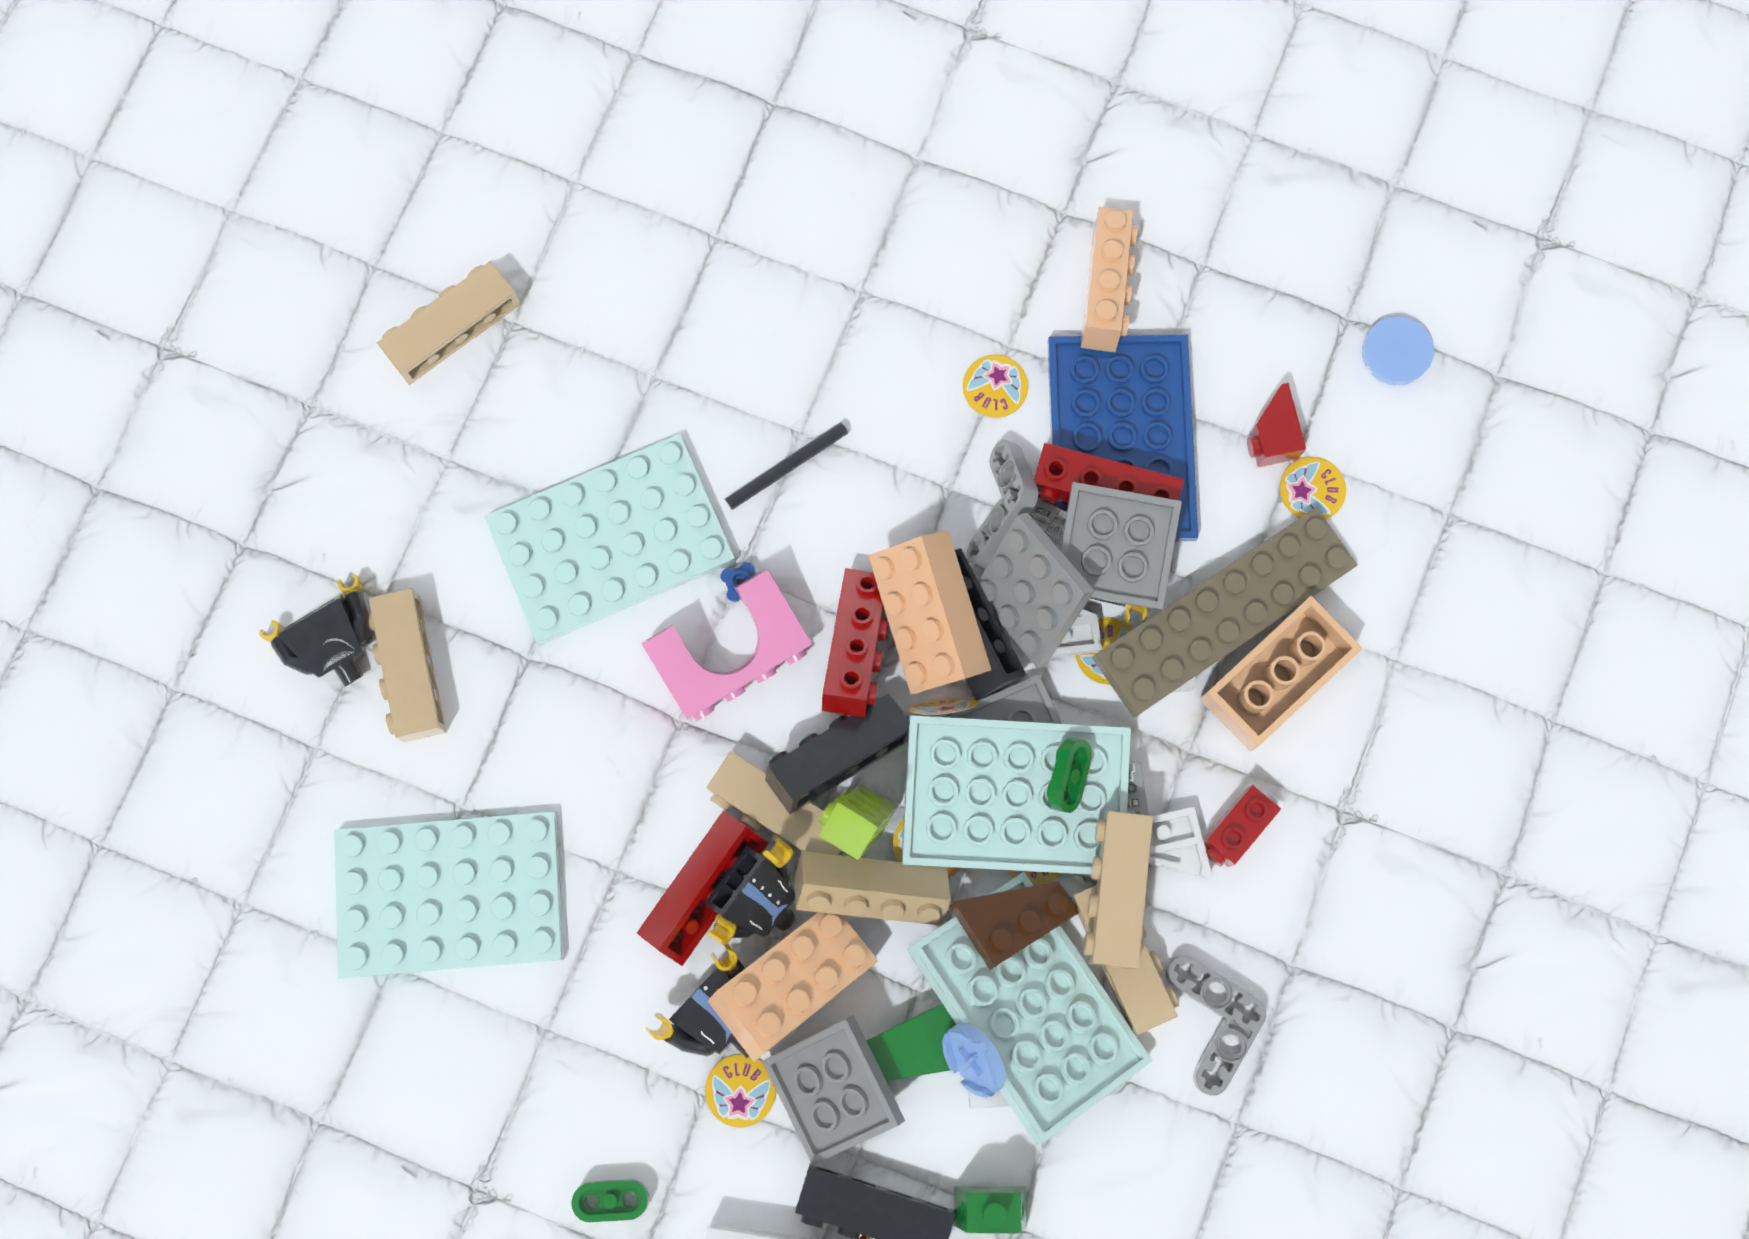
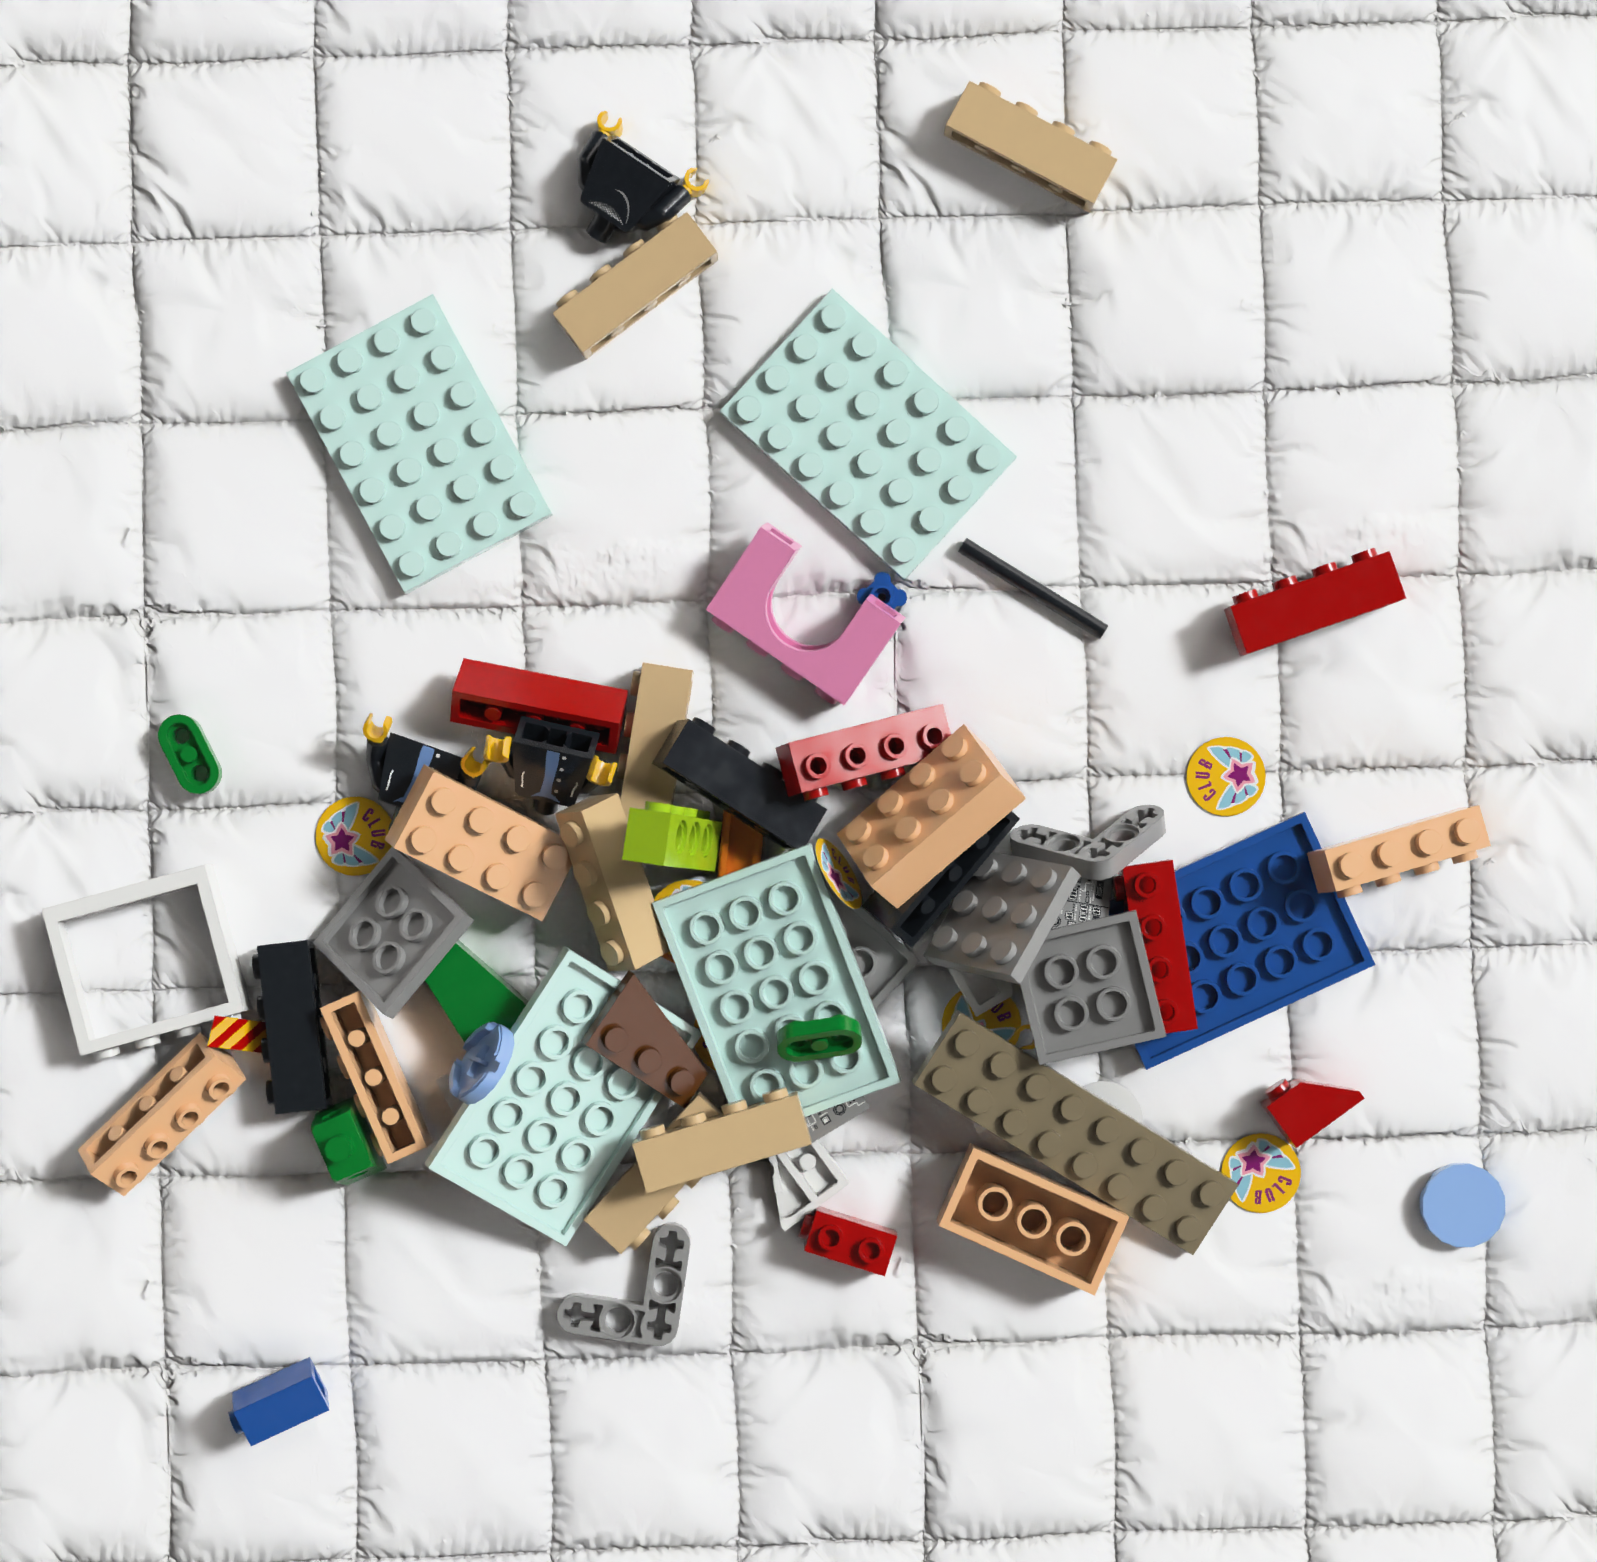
camera: 65 degrees right, 10 degrees up
(885, 778) = (738, 846): none -> orange tile
(892, 262) = (1314, 603): none -> red brick
(947, 1159) = (376, 1076): none -> light nougat brick

